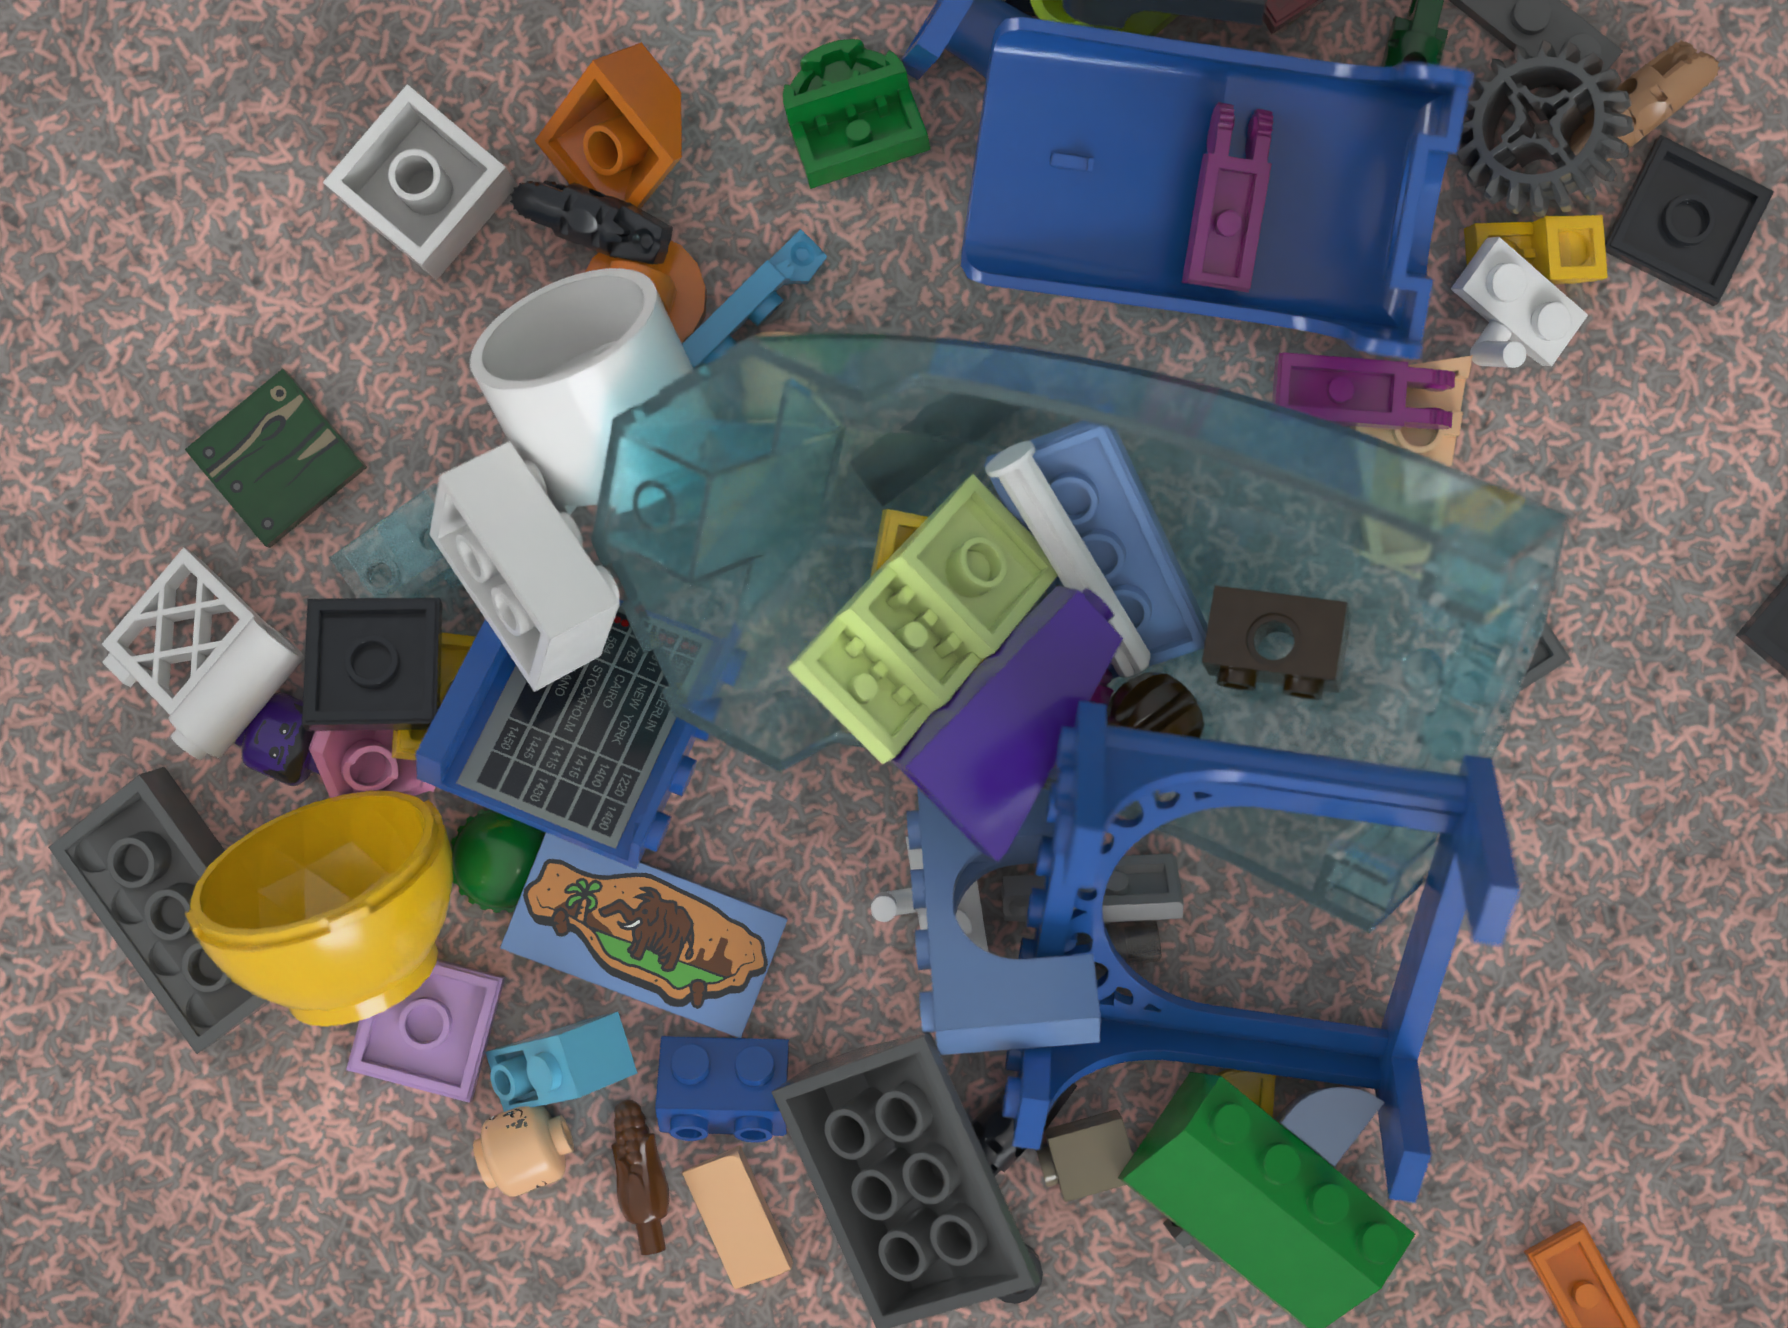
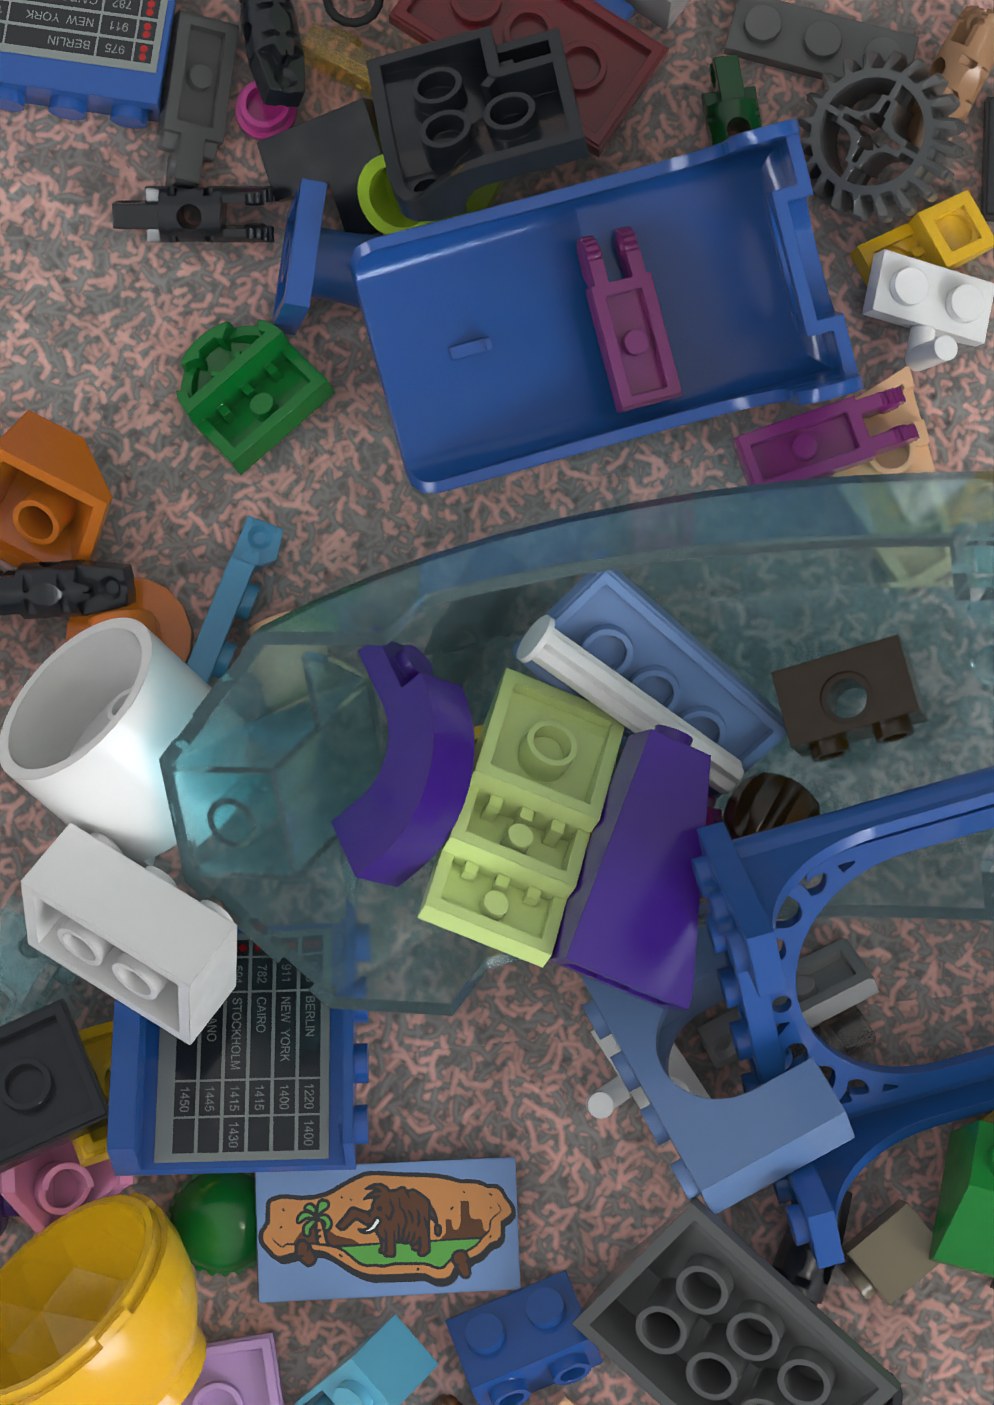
camera: 25 degrees left, 5 degrees down
(850, 539) = (424, 770): none -> dark purple arch

